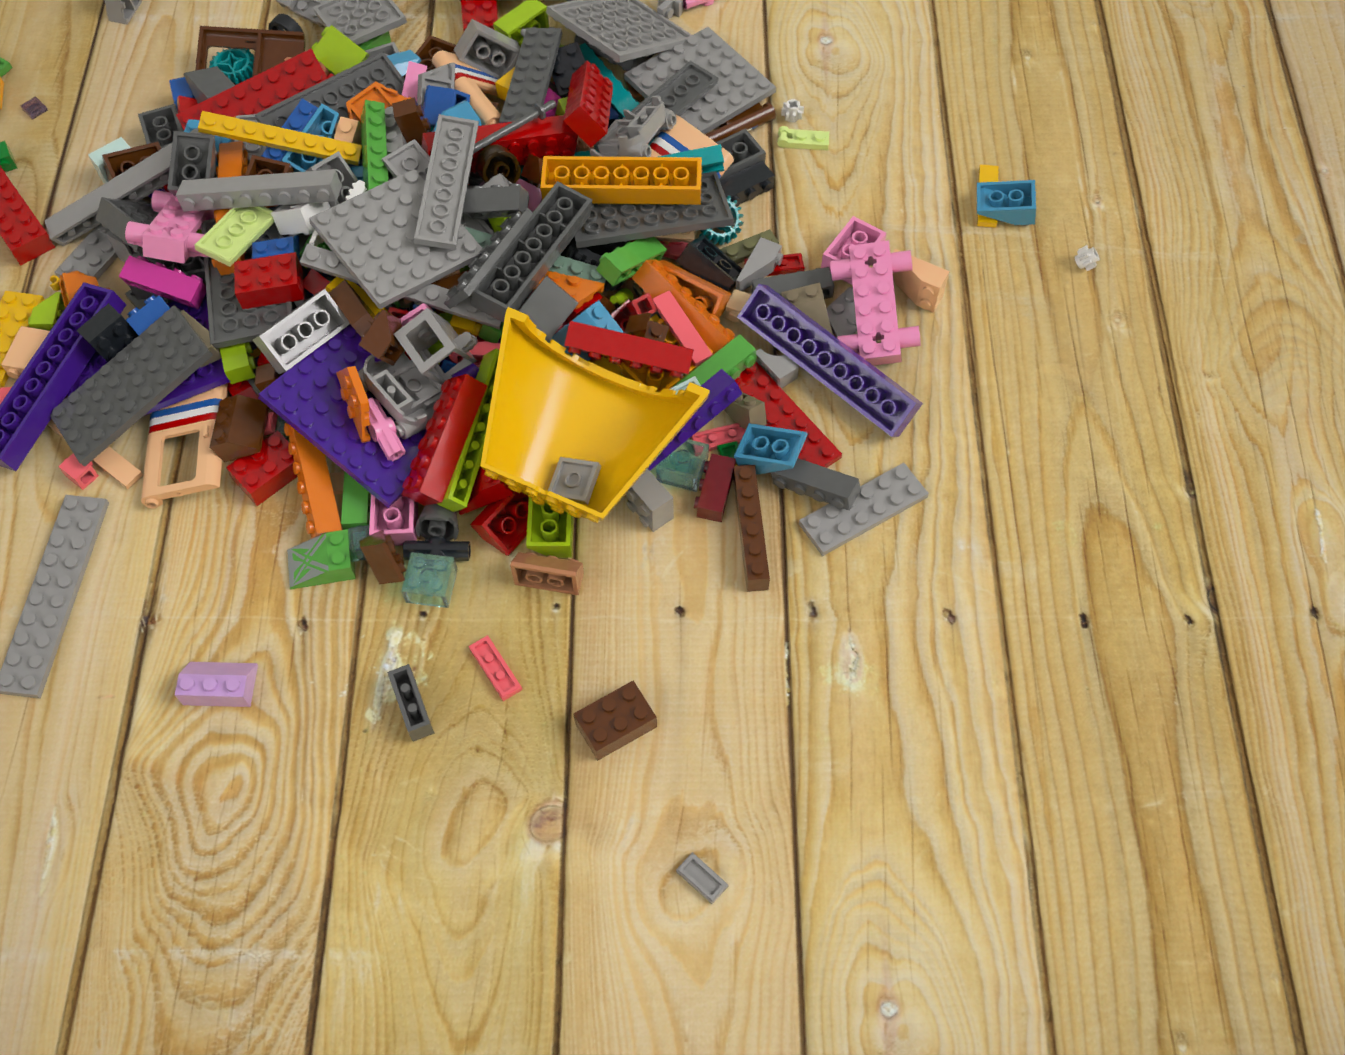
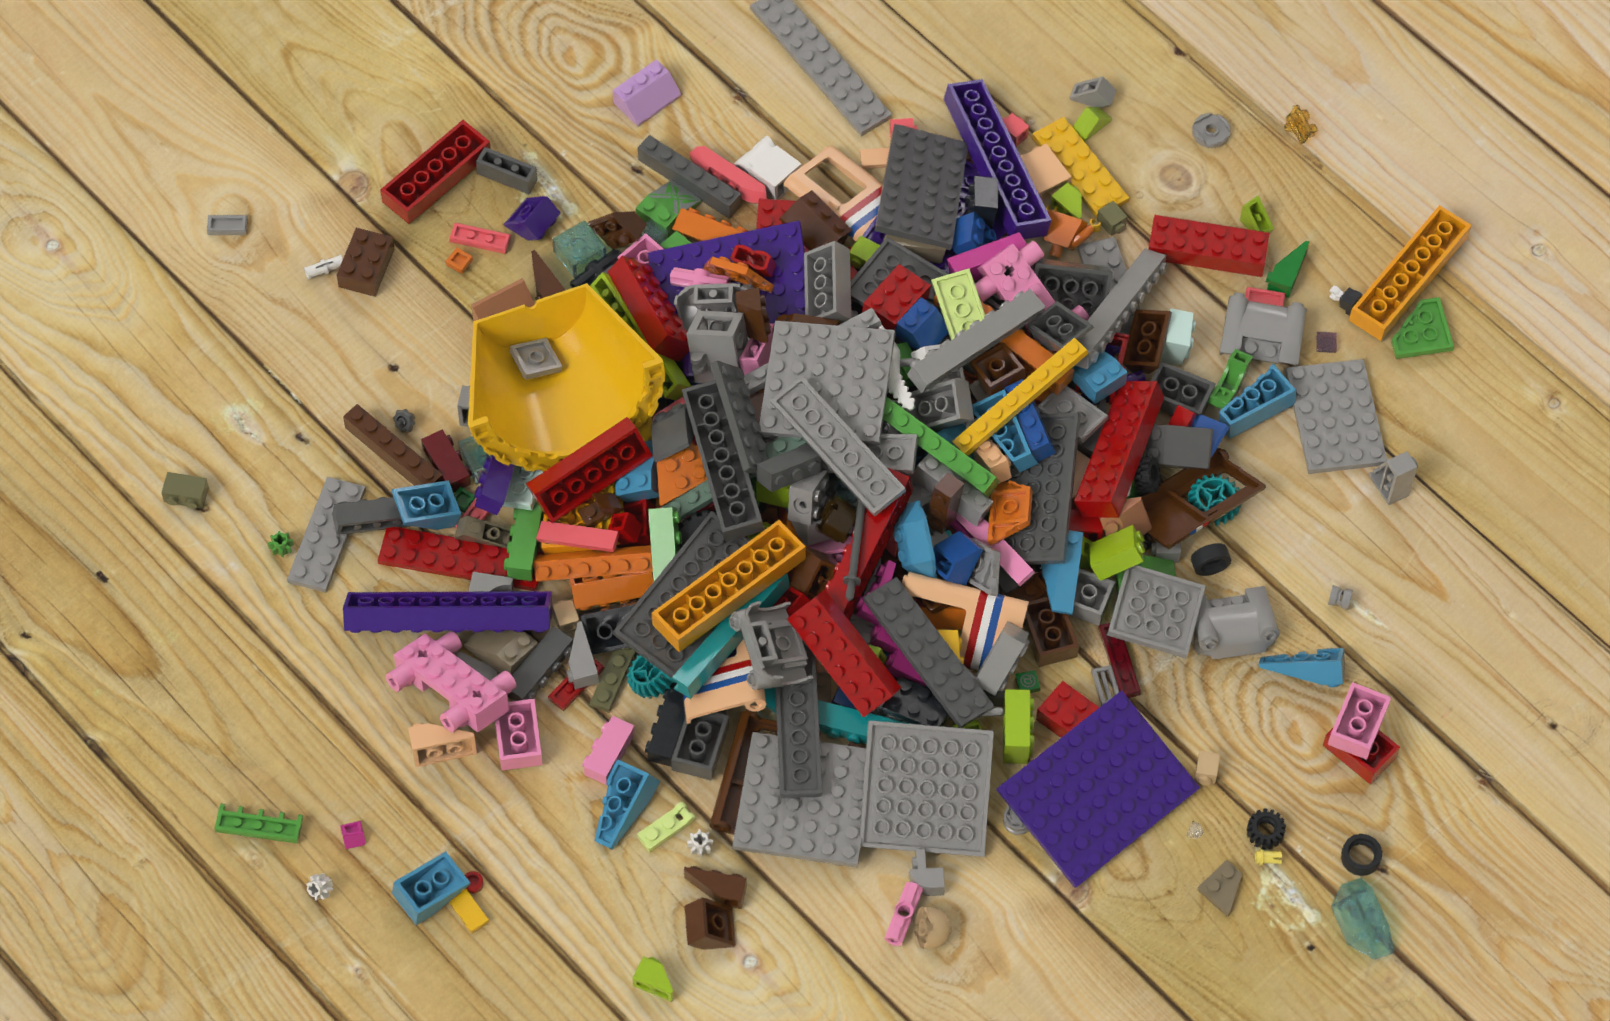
camera: 135 degrees right, 0 degrees up
(28, 160) = (1265, 296): none -> coral tile
(37, 282) = (1112, 218): none -> olive brick
(57, 133) = (1264, 330): none -> light grey piece
(94, 64) = (1336, 416): none -> light grey plate
(120, 124) = (1231, 379): none -> bright green arch
(127, 95) = (1258, 402): none -> dark azure wedge
(208, 523) = (769, 166): none -> white piece
(245, 553) = (728, 173): none -> coral brick
(275, 571) = (689, 176): none -> dark grey brick
(331, 389) = (757, 260): none -> red brick
(414, 28) = (1121, 663): none -> dark red tile
(435, 644) = (533, 218): none -> dark purple slope
(440, 26) = (1101, 670): none -> light grey tile
(469, 756) = (434, 172): none -> red brick
(489, 572) = (545, 281): none -> reddish brown slope
(534, 657) = (459, 260): none -> orange plate
(654, 750) = (323, 266): none -> white pin
(716, 548) = (404, 420): none -> dark grey piece
(796, 202) = (608, 748): none -> bright pink brick
(804, 78) = (718, 886): none -> reddish brown slope
(818, 164) = (625, 799): none -> dark azure wedge
(835, 65) = (709, 924): none -> reddish brown slope
(901, 62) = (653, 979): none -> lime slope
(915, 526) = (280, 538): none -> bright green gear
(956, 632) = (185, 490): none -> olive brick
(968, 196) = (475, 880): none -> red tile
(1030, 282) = (353, 835): none -> dark pink slope
(1100, 331) = (258, 825): none -> bright green hinge

